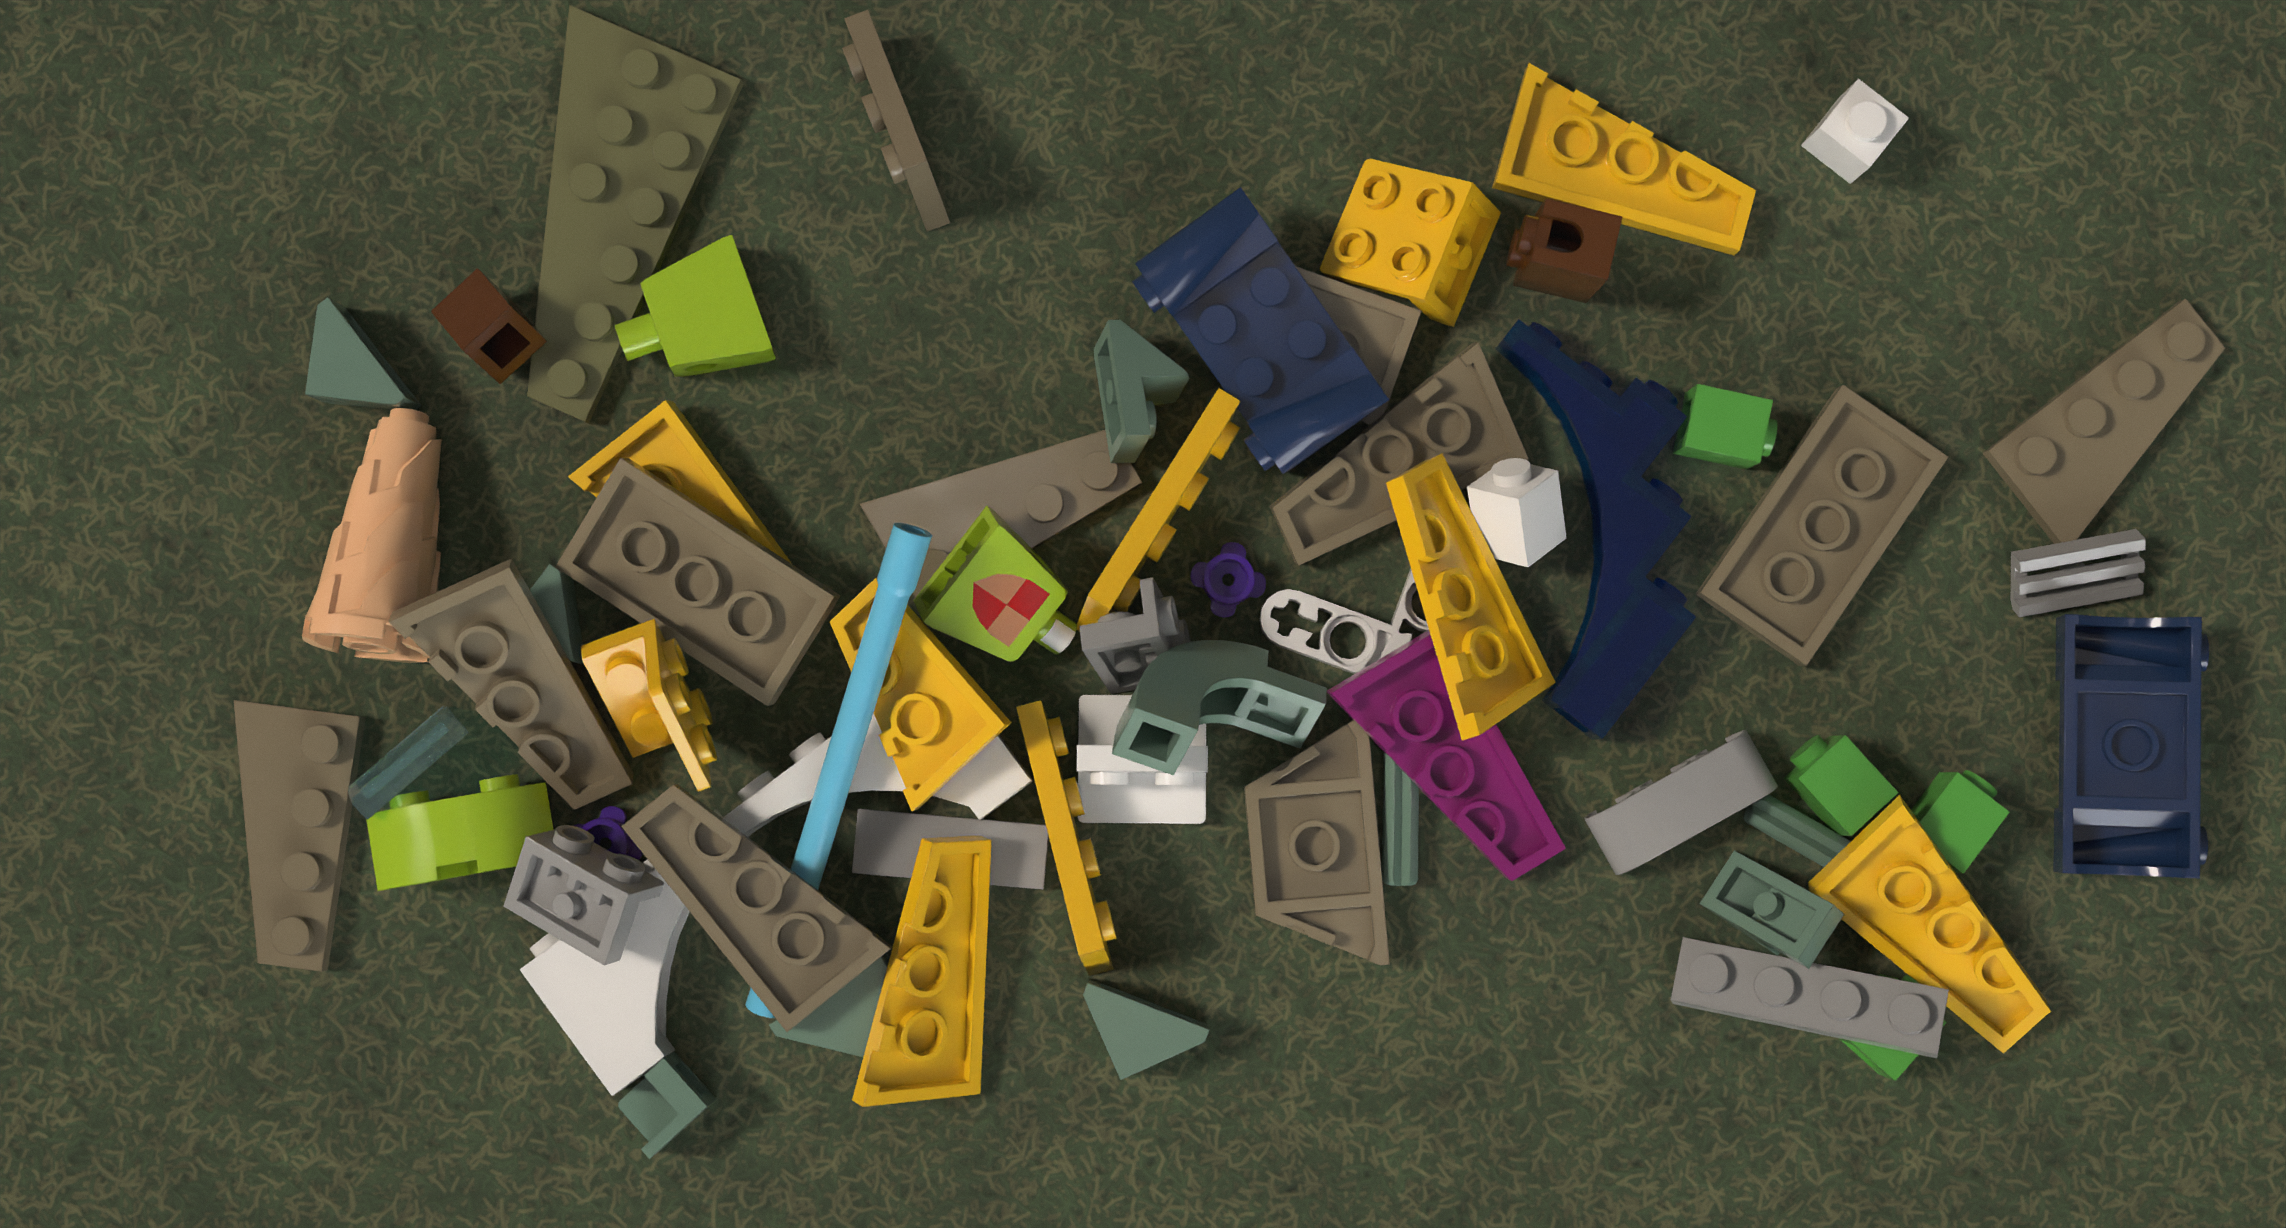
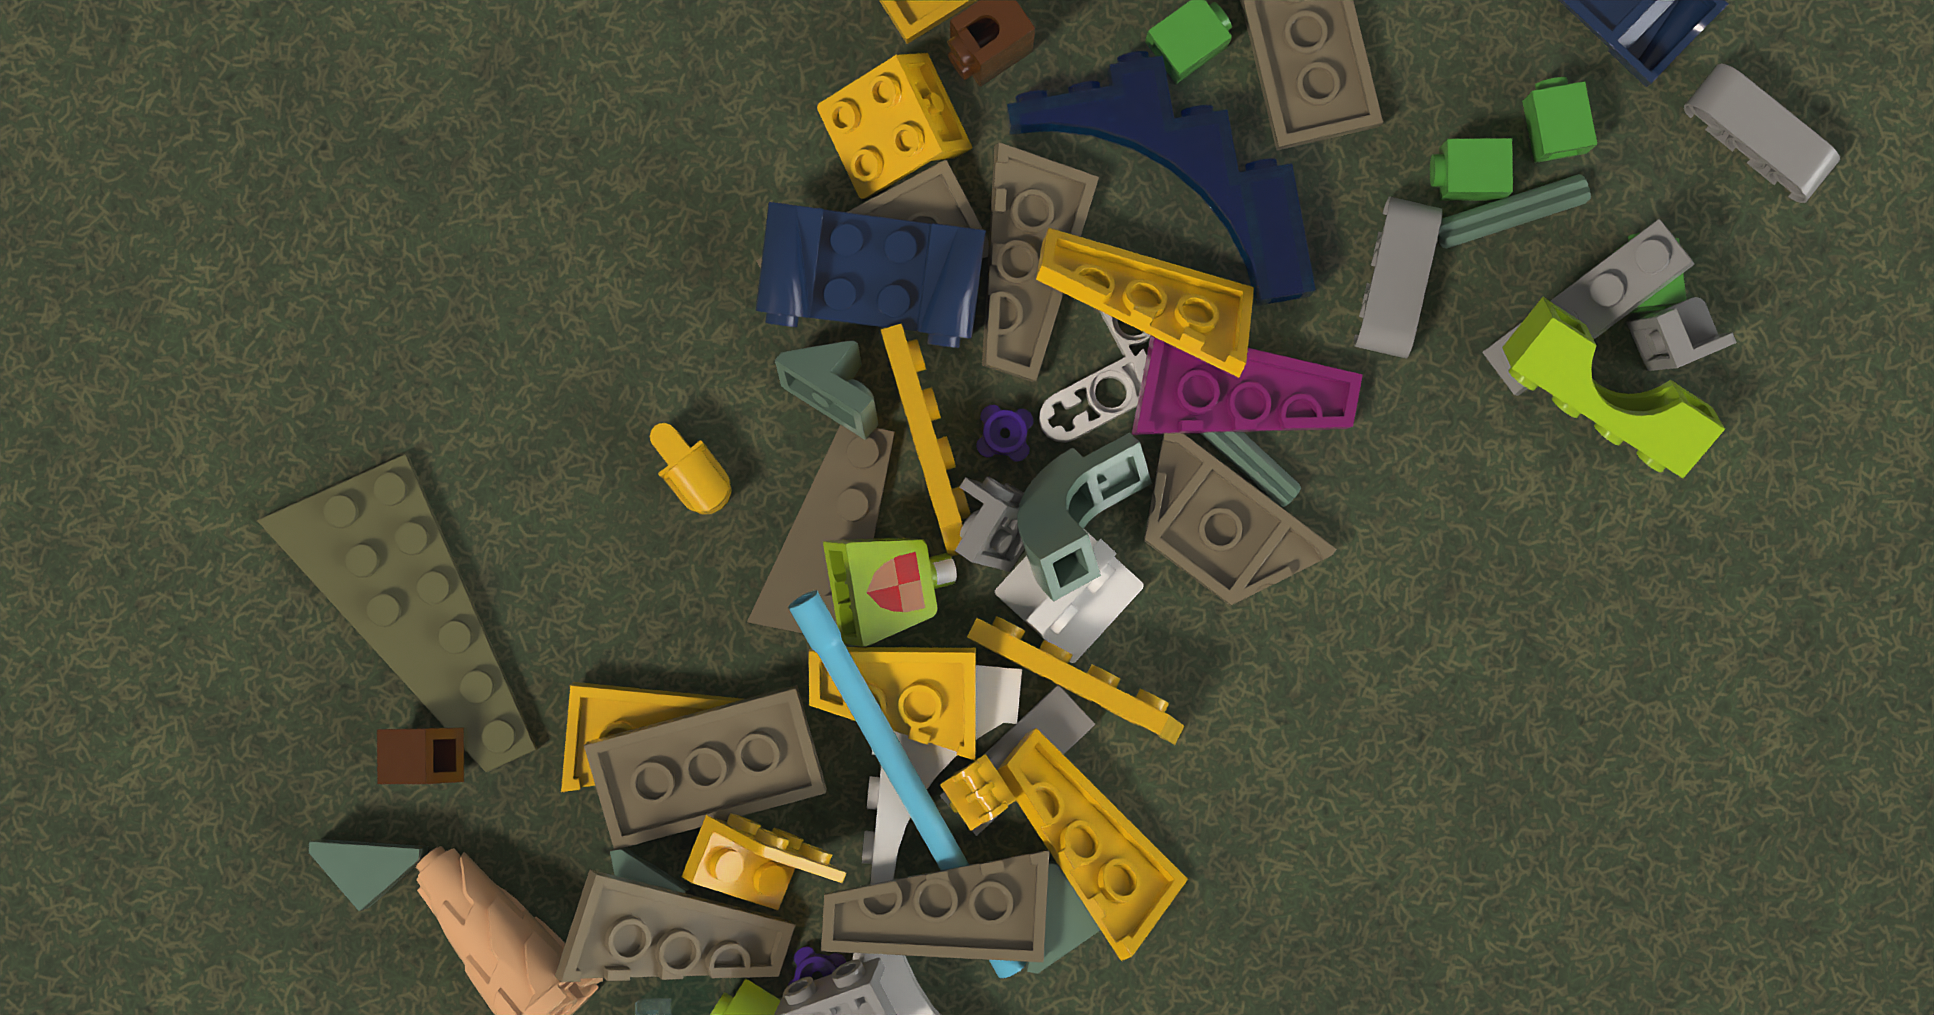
camera: 50 degrees left, 0 degrees up
(700, 315) = (535, 614): lime torso -> none
(885, 839) = (977, 792): none -> yellow arm
(888, 111) = (516, 378): dark tan wing -> none
(947, 336) = (691, 471): none -> yellow arm
(1139, 1030) = (1238, 743): sand green slope -> none
(1518, 510) = (1127, 212): white brick -> none
(1765, 1158) = (1663, 424): none -> lime arch
(1772, 909) = (1514, 281): sand green slope -> none
(1857, 1100) = (1677, 335): none -> light grey panel
(1925, 921) = (1600, 194): yellow wing -> none
(2111, 1012) = (1763, 131): none -> light grey beam

